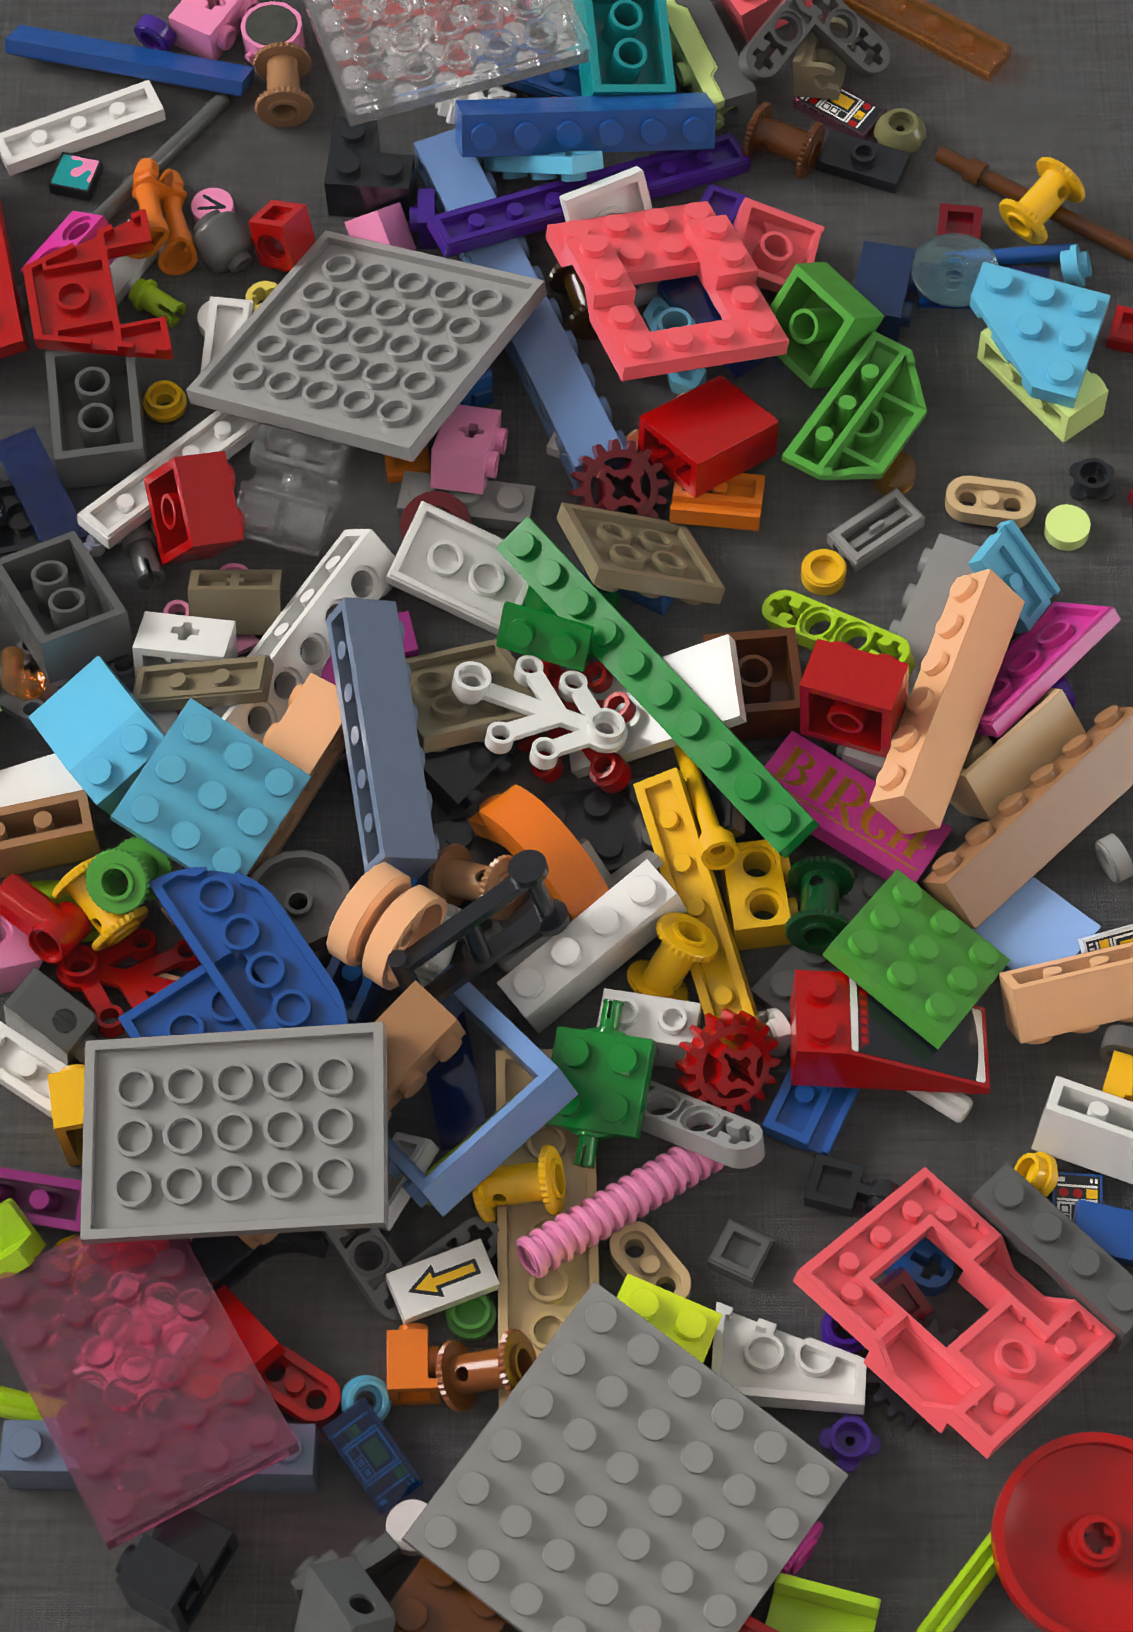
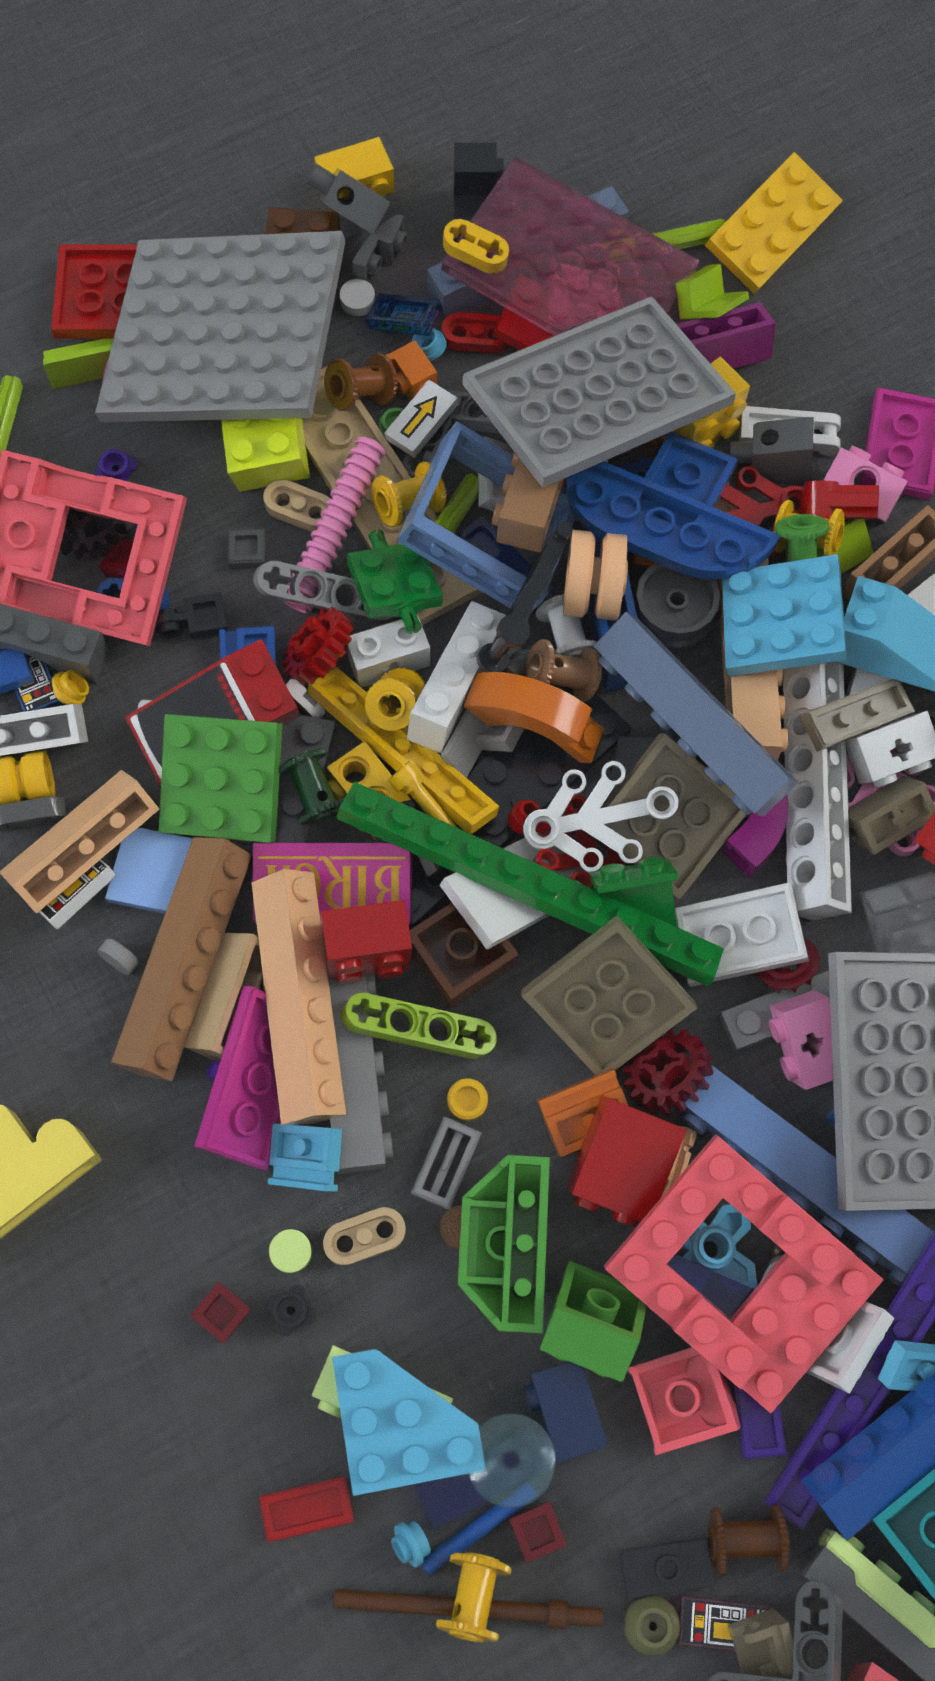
camera: 145 degrees right, 10 degrees up
(257, 1415) = (475, 246): none -> yellow beam
(784, 1369) = (197, 476): white wing -> none

